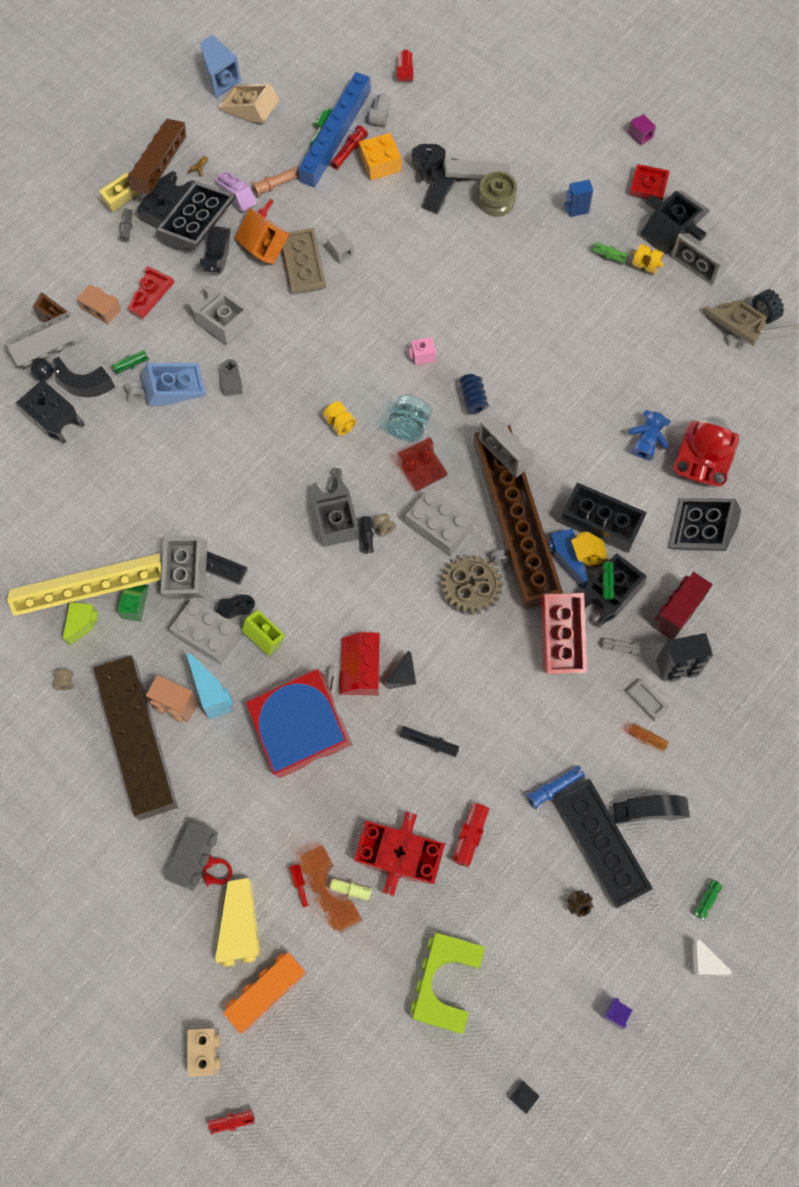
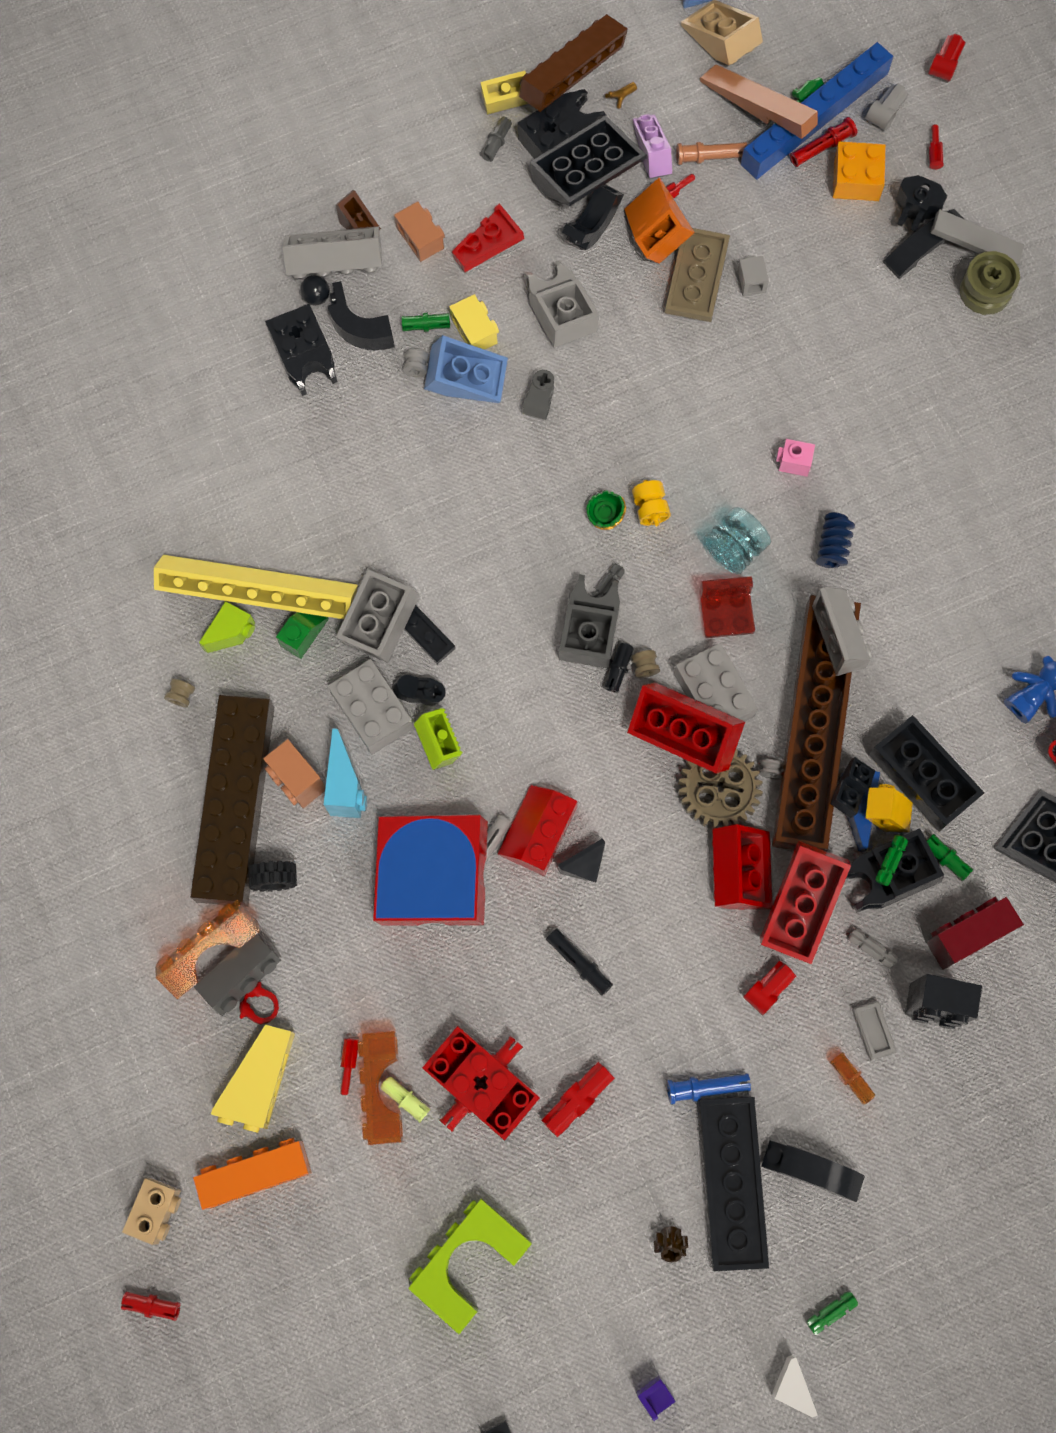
camera: 25 degrees right, 5 degrees up
(163, 349) = (473, 323): none -> light yellow brick
(173, 823) = (231, 927): none -> clear orange arch
(187, 776) = (272, 876): none -> black tyre
(296, 135) = (761, 101): none -> nougat slope
(311, 435) = (606, 510): none -> green hair
(424, 126) = (936, 150): none -> red axle
(431, 552) = (686, 727): none -> red brick
(510, 631) = (742, 868): none -> red slope
(559, 544) = (851, 787): none -> black slope
(565, 705) = (766, 992): none -> red piece
(645, 567) = (949, 858): none -> green pin

